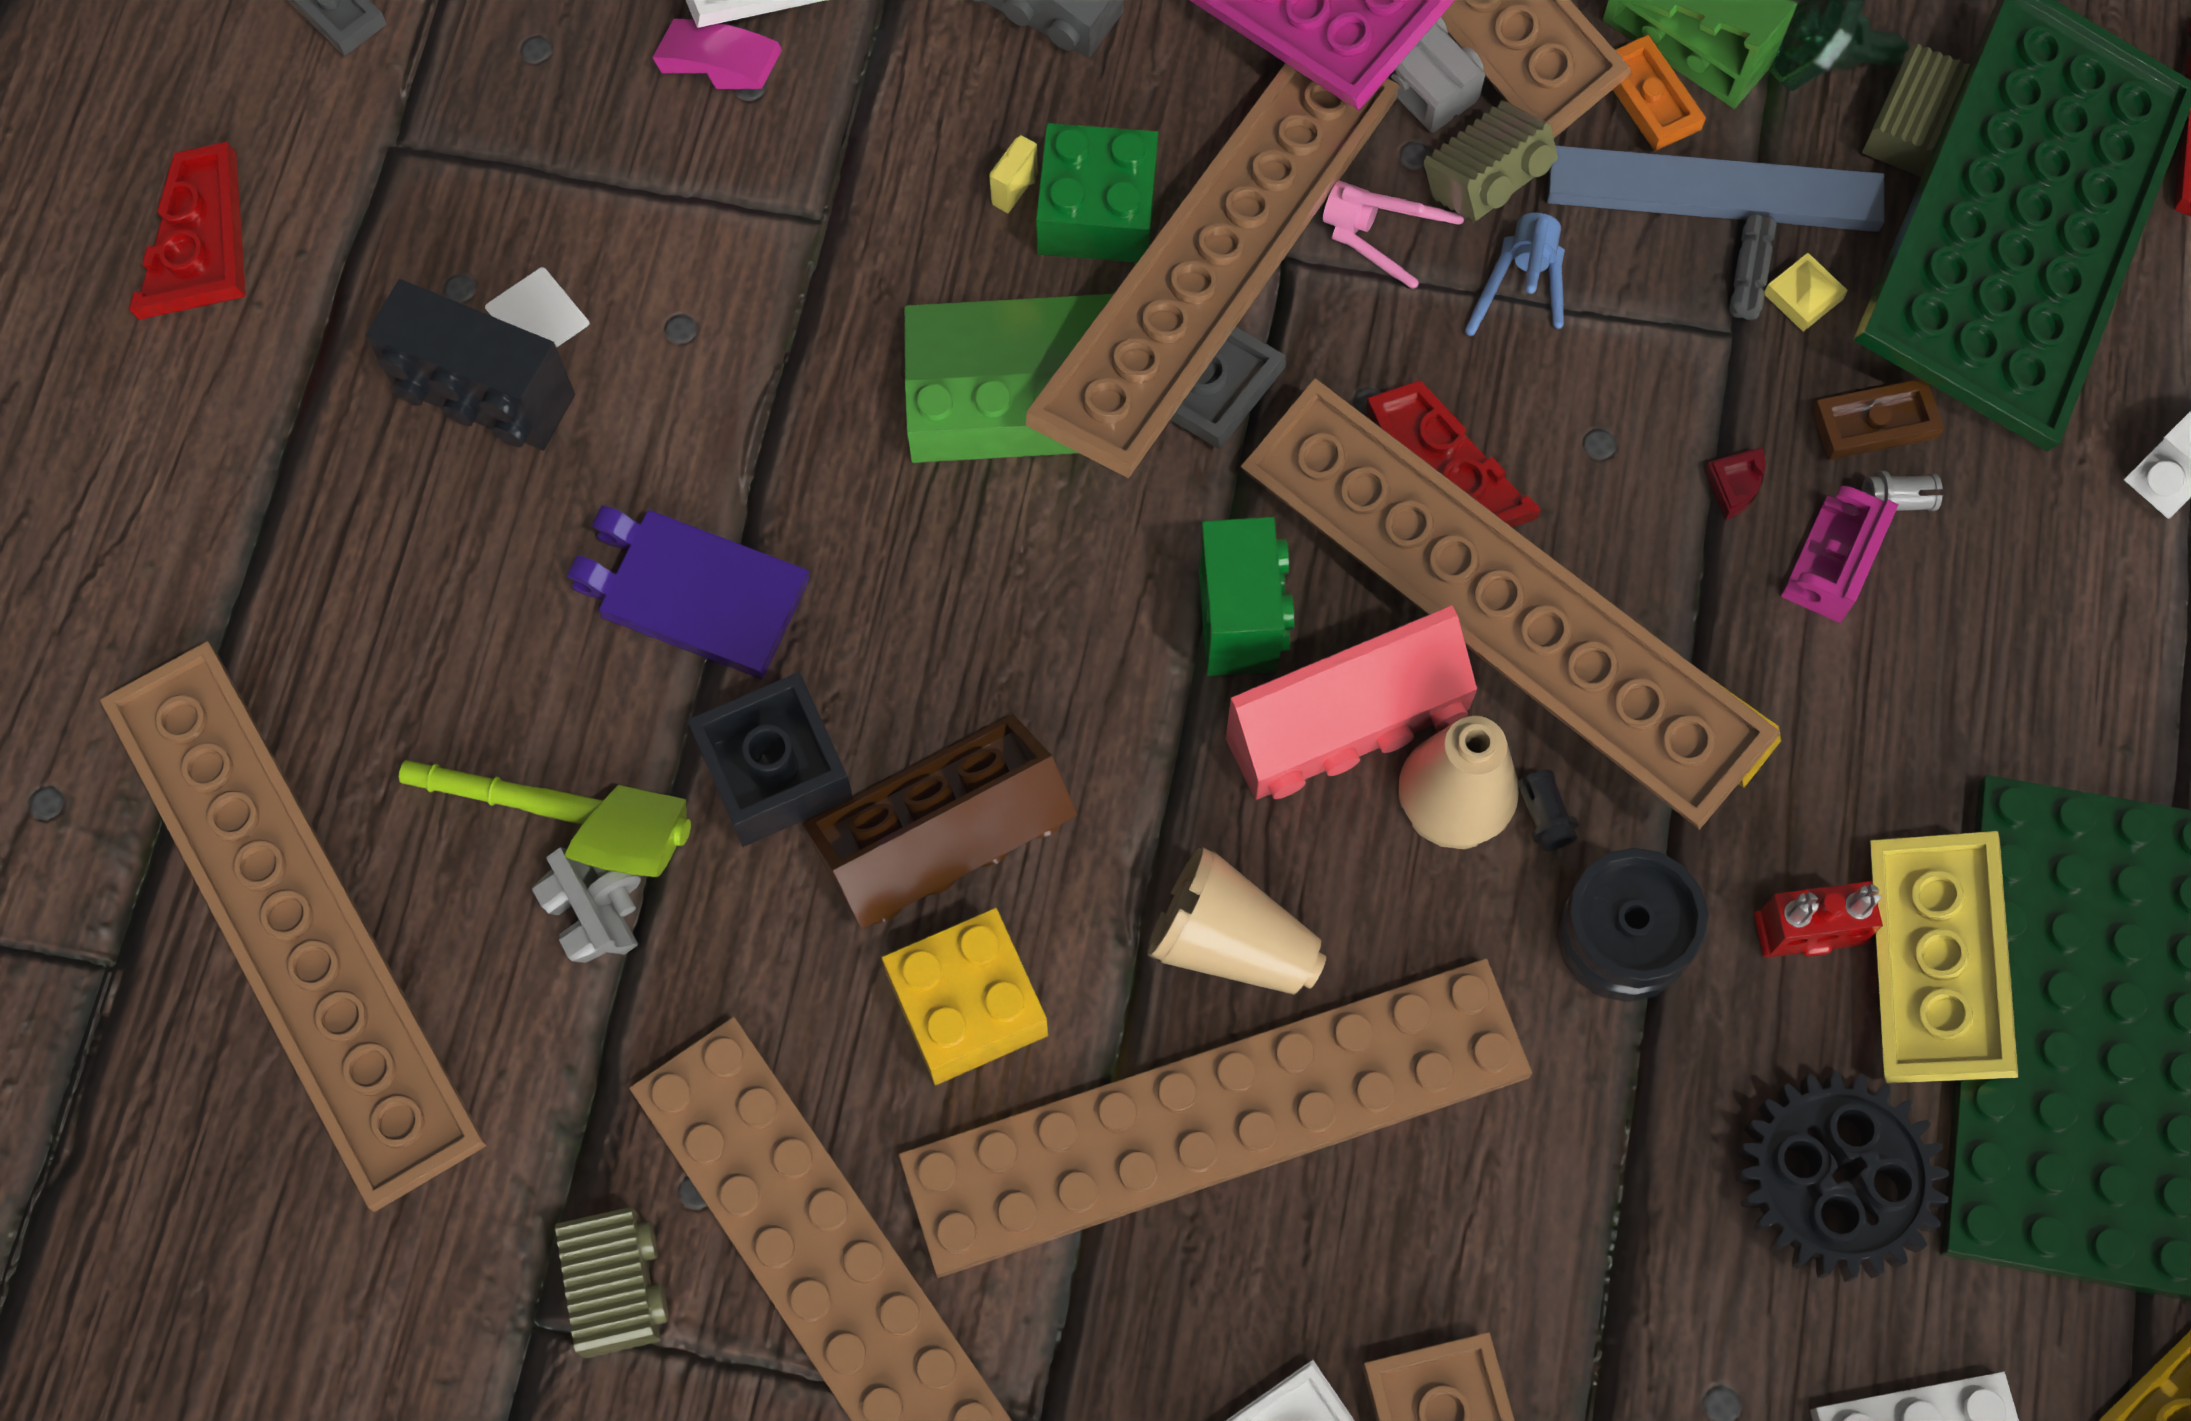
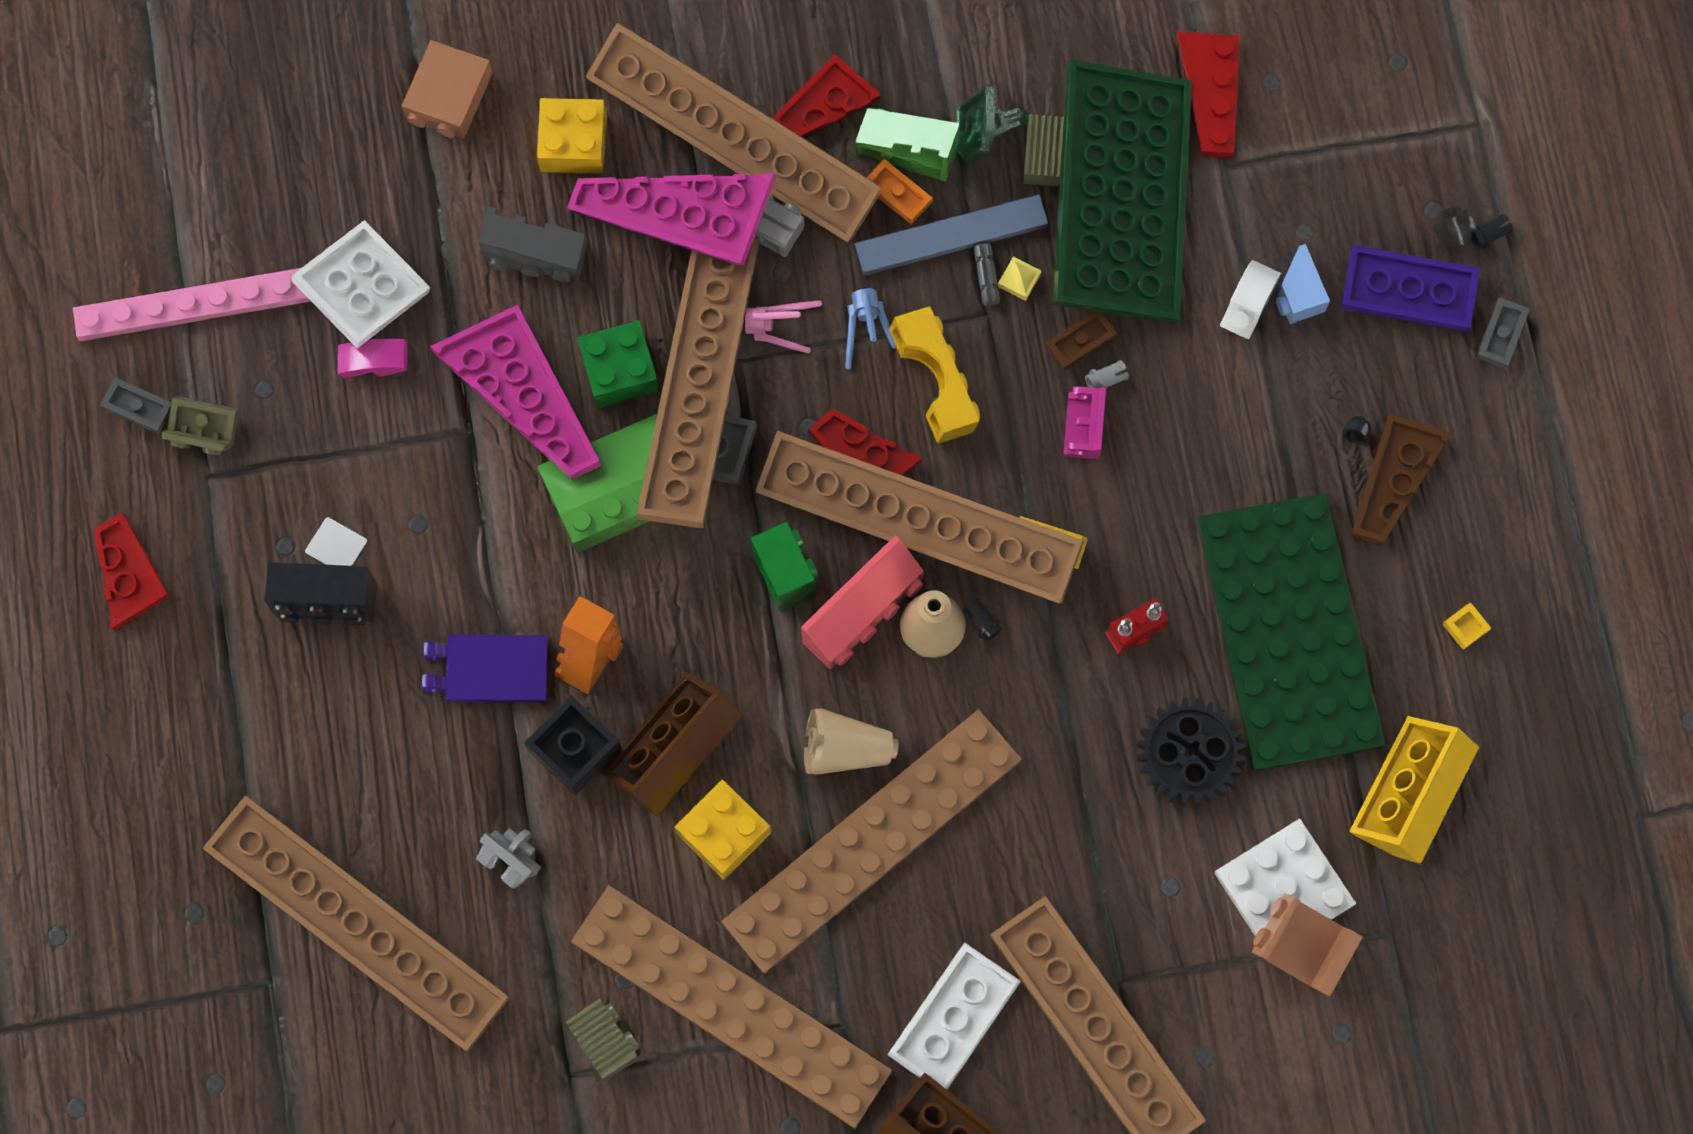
camera: 20 degrees left, 5 degrees up
(412, 59) = (201, 425): none -> olive bracket
(623, 833) = (512, 813): lime piece -> none
(865, 598) = (589, 642): none -> orange wedge
(926, 161) = (513, 376): none -> dark pink wing
(1013, 173) = (567, 368): light yellow tile -> none
(1490, 161) = (825, 267): olive brick -> none
(1608, 324) = (921, 338): none -> yellow arch
(1652, 896) = (1040, 684): black wheel -> none
(1736, 480) = (1019, 400): dark red tile -> none
(1943, 959) = (1204, 622): light yellow plate -> none

